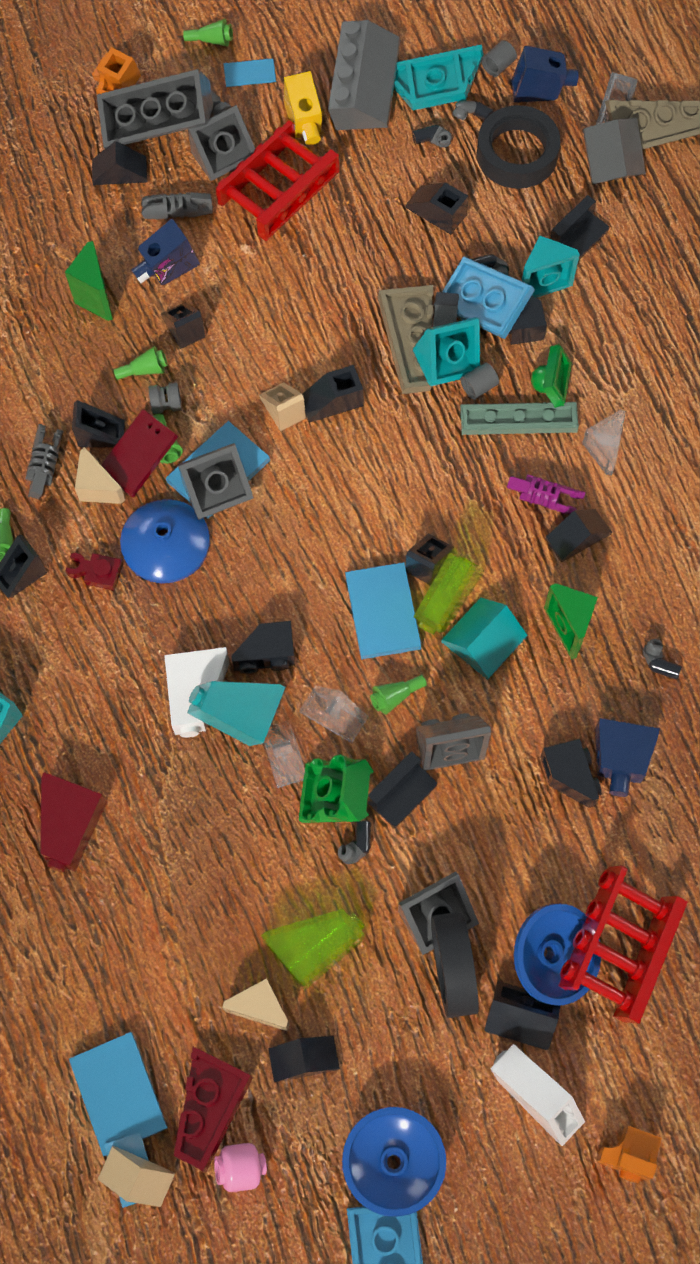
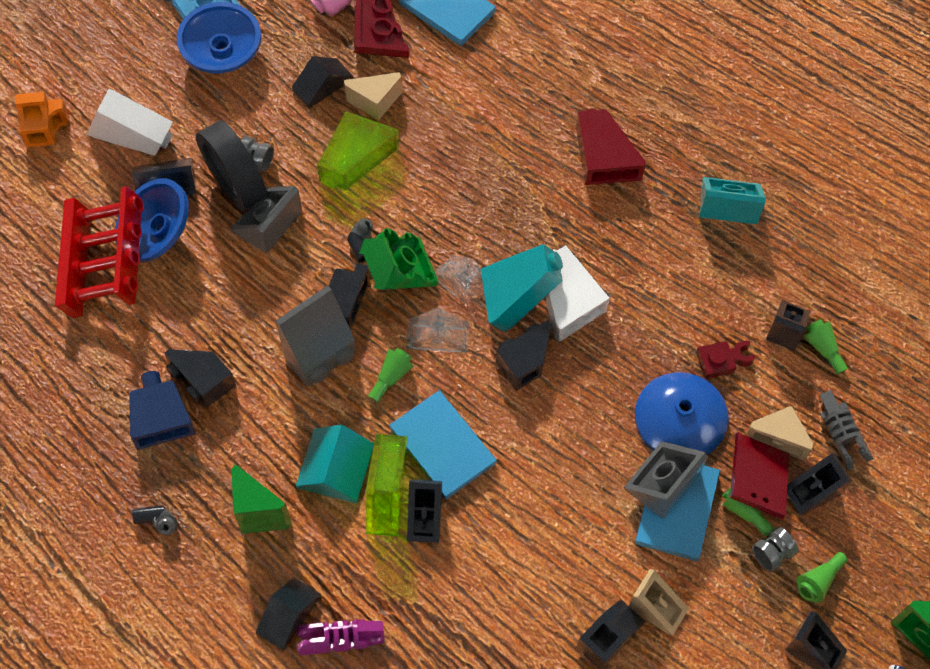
camera: 150 degrees right, 5 degrees down
(418, 993) = (261, 153): none -> dark grey wheel

